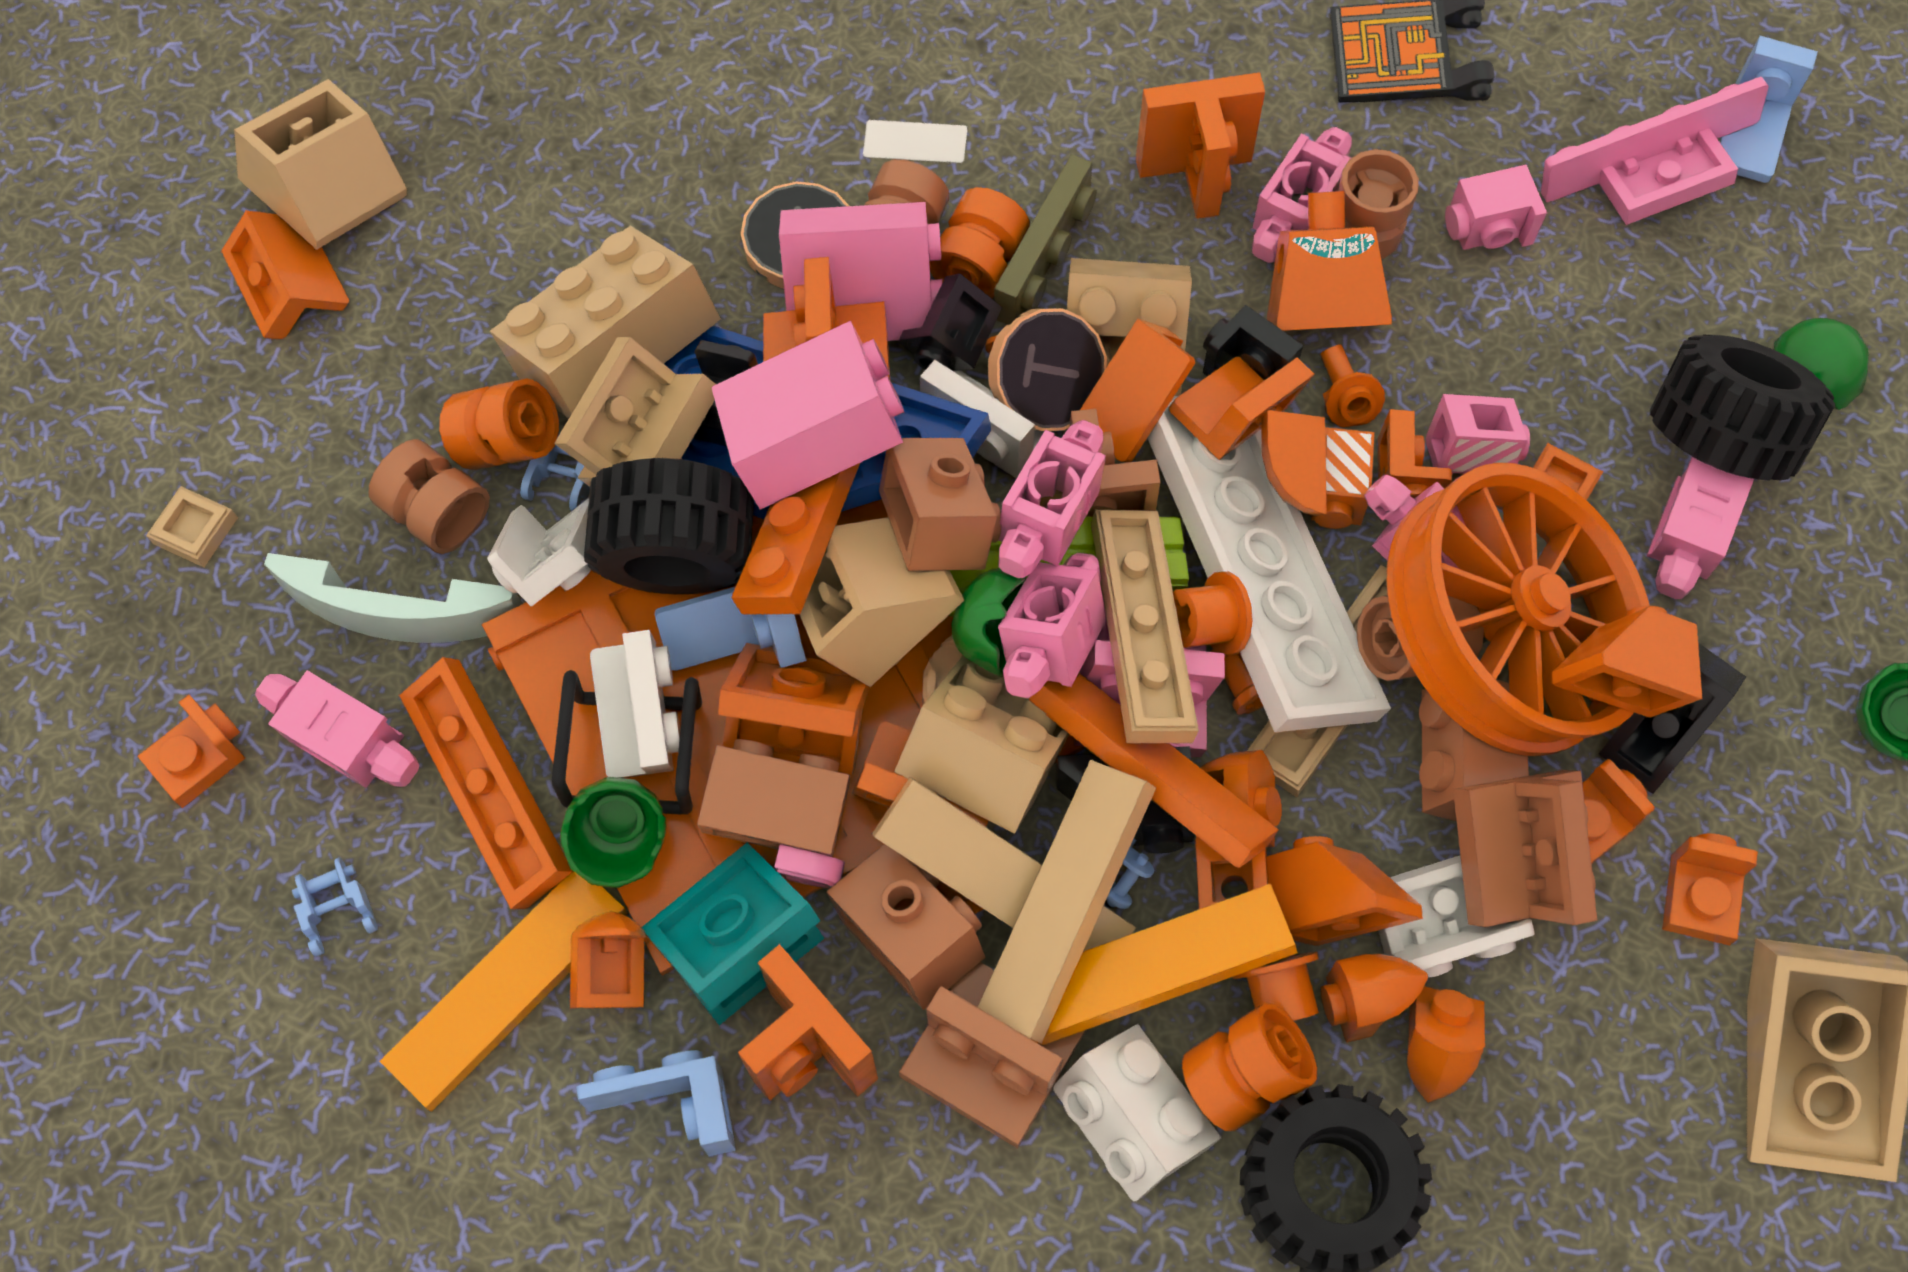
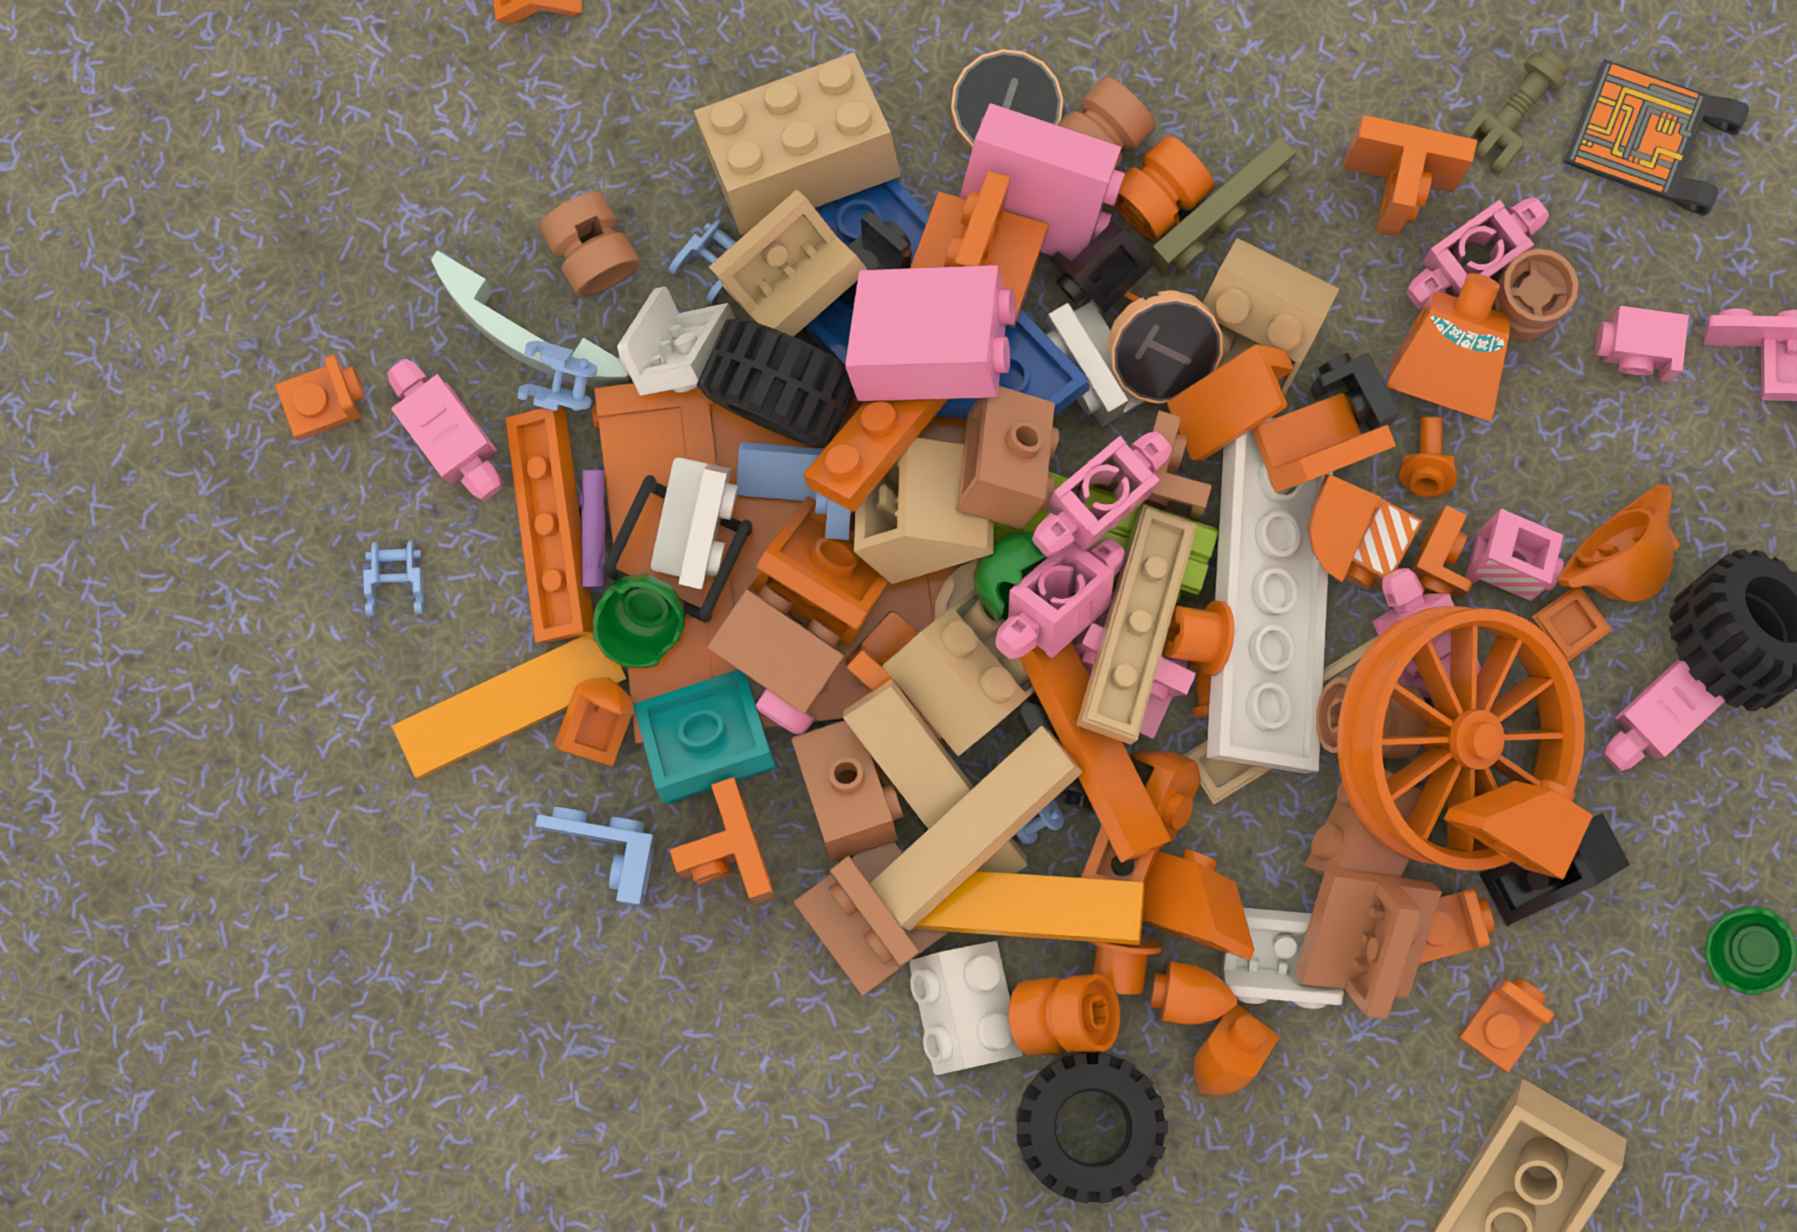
camera: 20 degrees right, 15 degrees up
(192, 526) = (379, 183): tan tile -> none
(434, 603) = (560, 361): none -> light blue piece
(499, 424) = (671, 204): orange wheel -> none
(527, 754) = (593, 528): none -> medium lavender hose
(915, 141) = (1153, 45): white sticker -> none
(1284, 32) = (1545, 72): none -> olive hinge
(1581, 393) = (1629, 552): none -> orange hat

